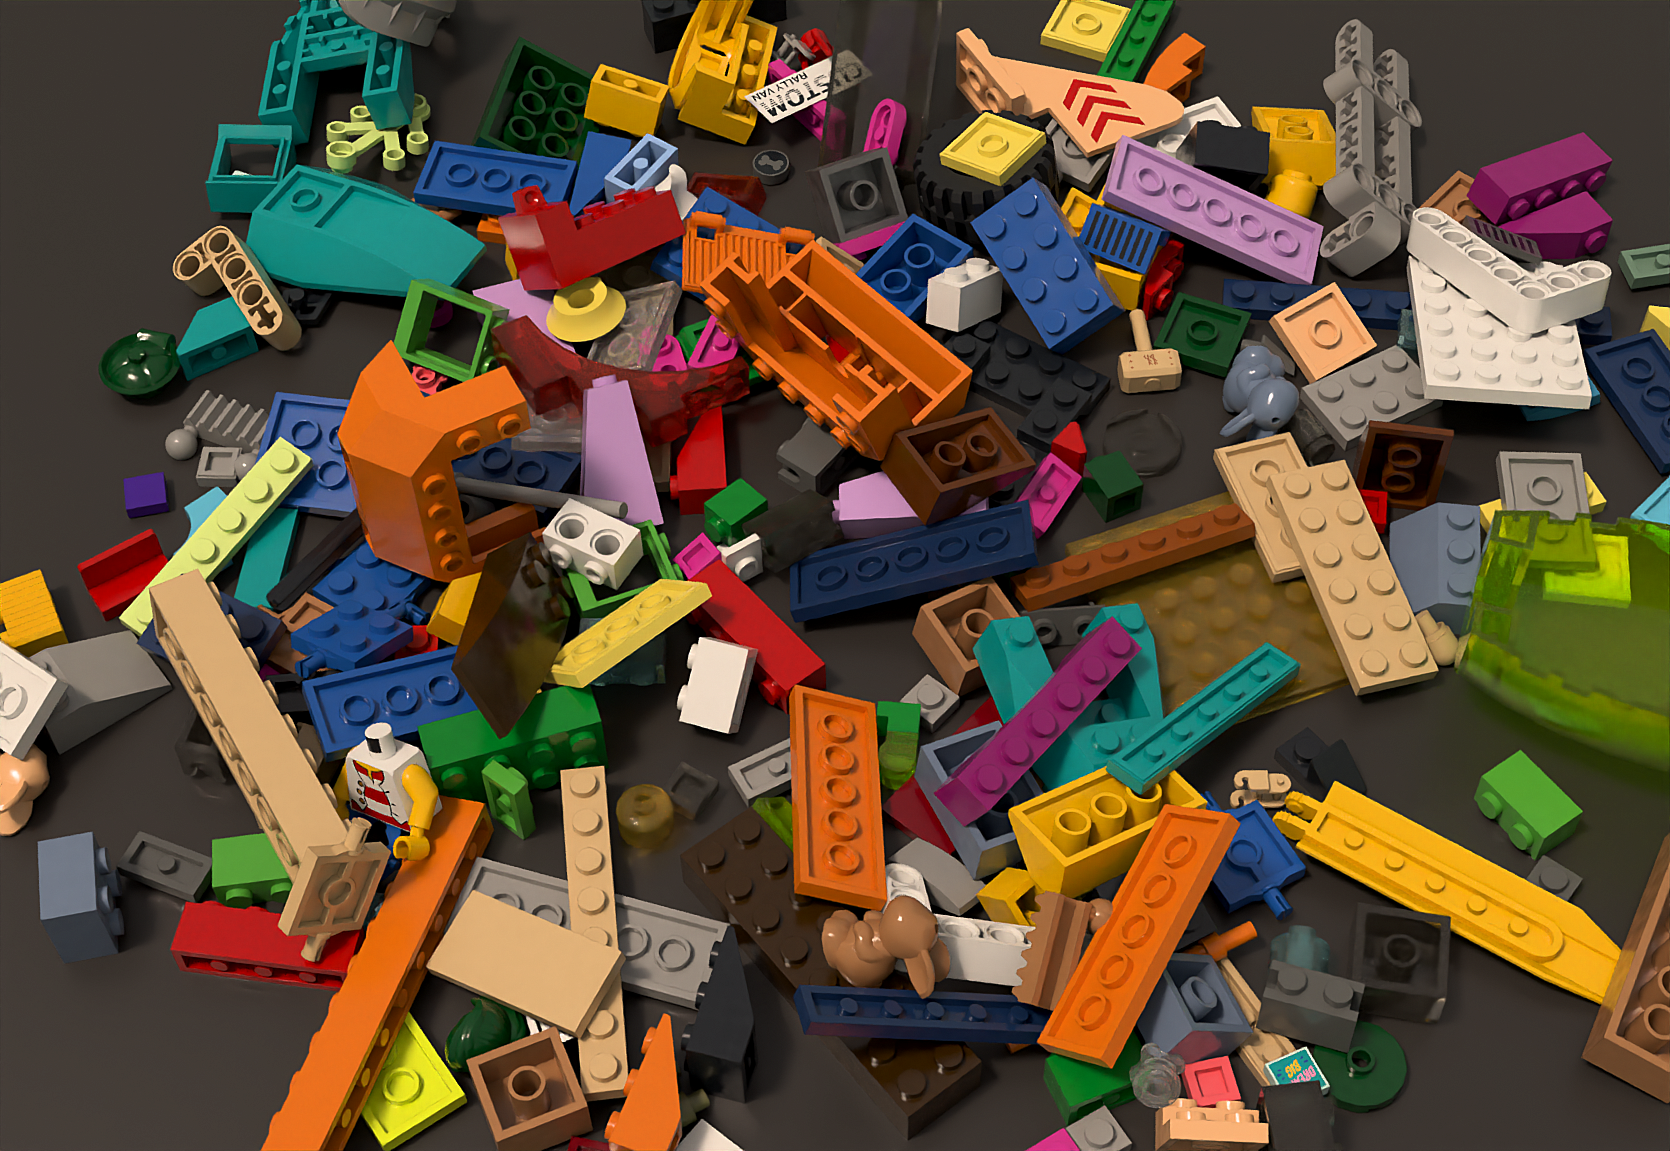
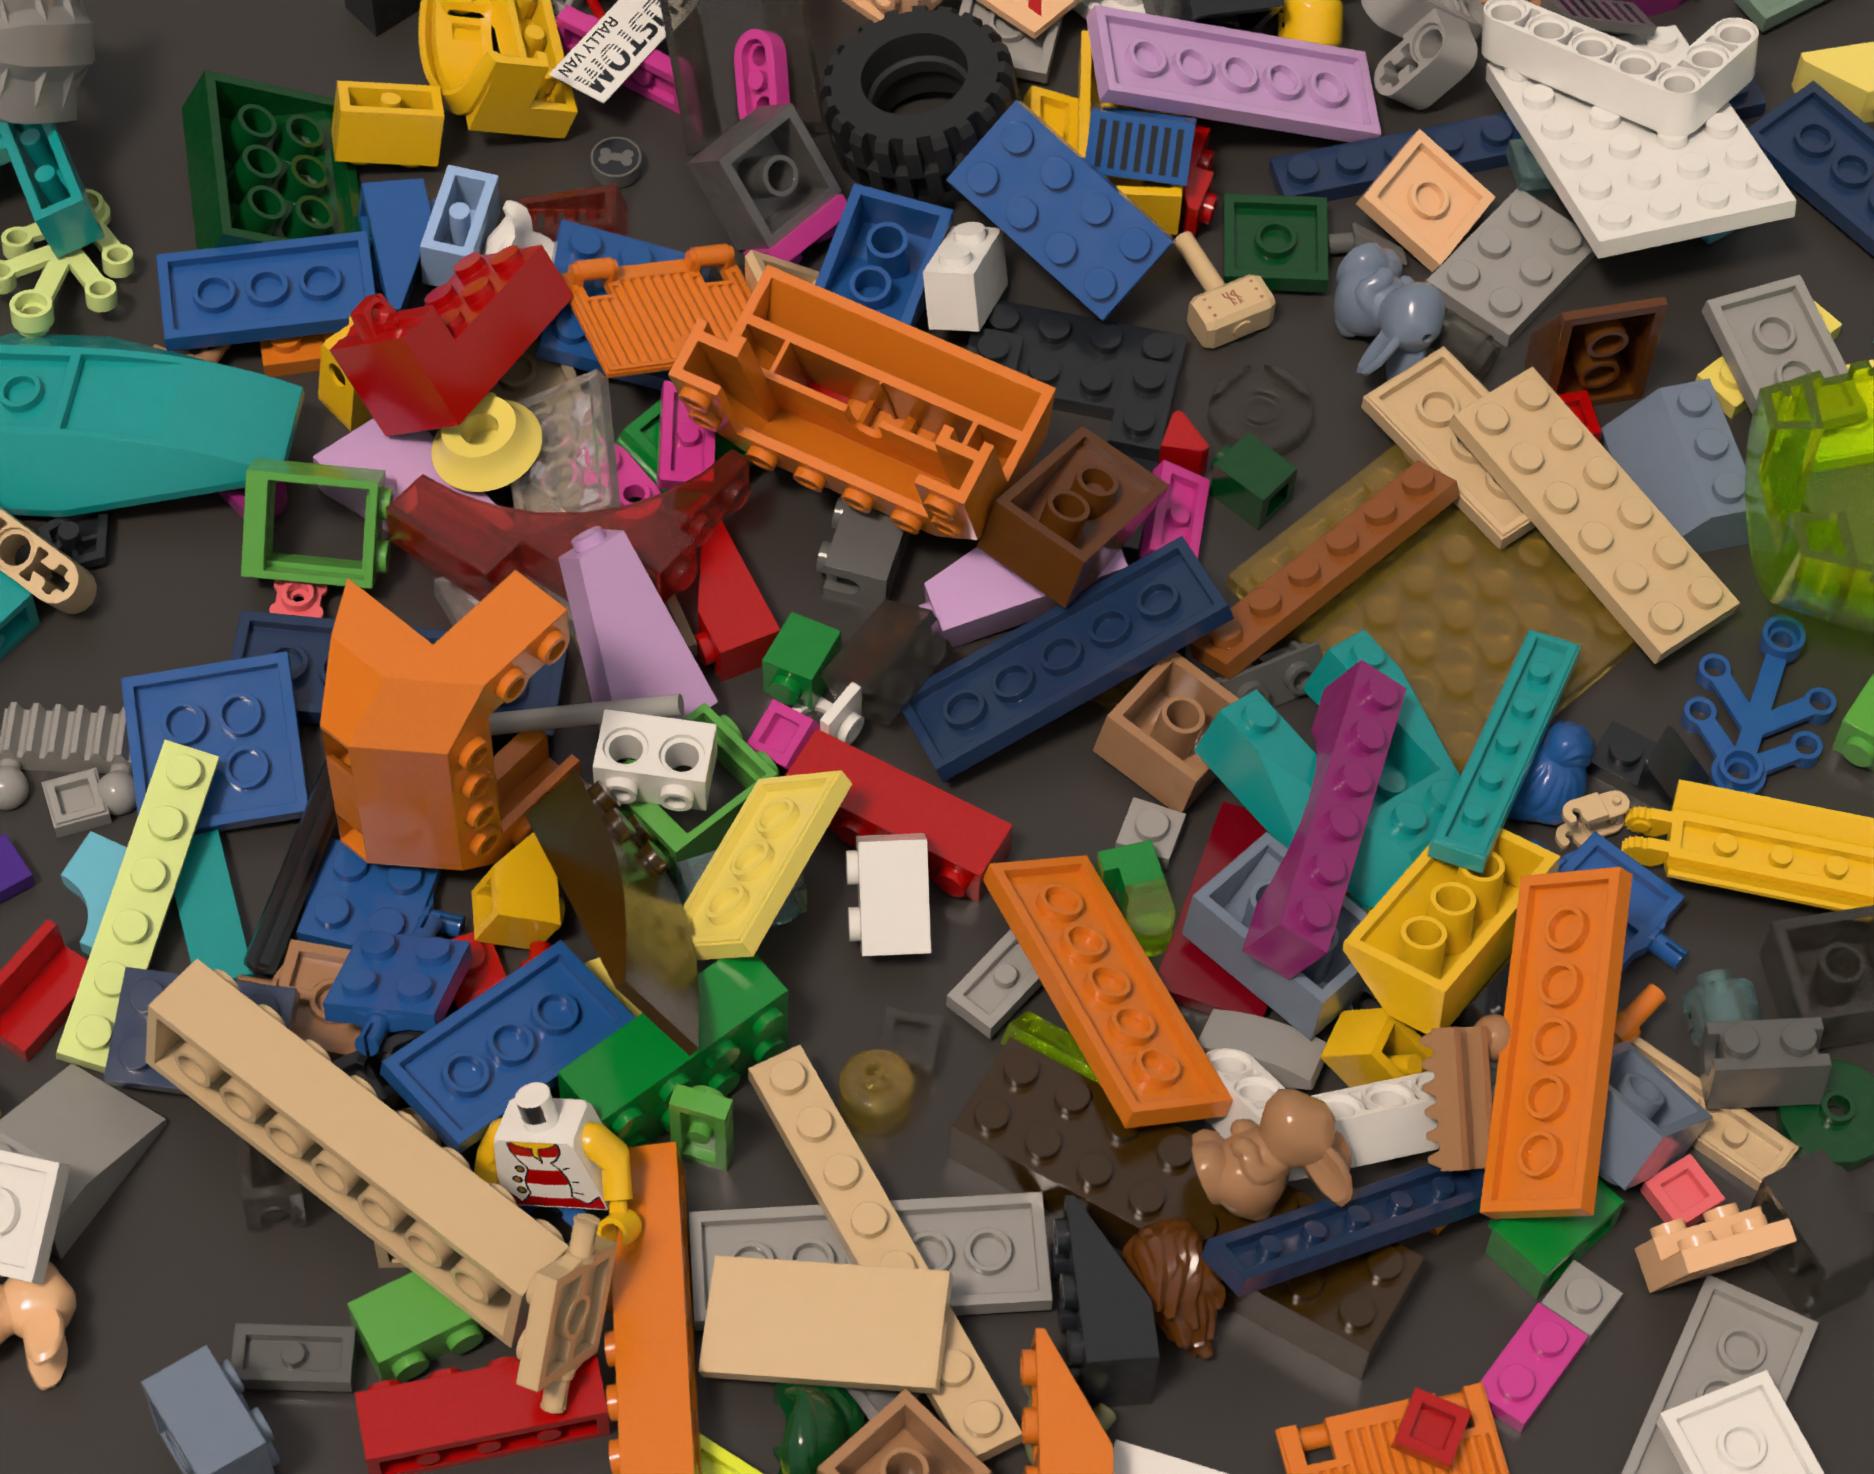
camera: 25 degrees left, 5 degrees up
(779, 1021) = (1178, 1281): none -> reddish brown hair
(993, 148) = (930, 67): light yellow tile -> none
(1156, 1076) = (1635, 1206): clear brick -> none
(1241, 747) = (1555, 774): none -> blue hair
(1295, 1068) = (1773, 1147): tile -> none
(1422, 758) = (1756, 718): none -> blue plant
(1439, 639) = (1721, 559): tan cylinder -> none

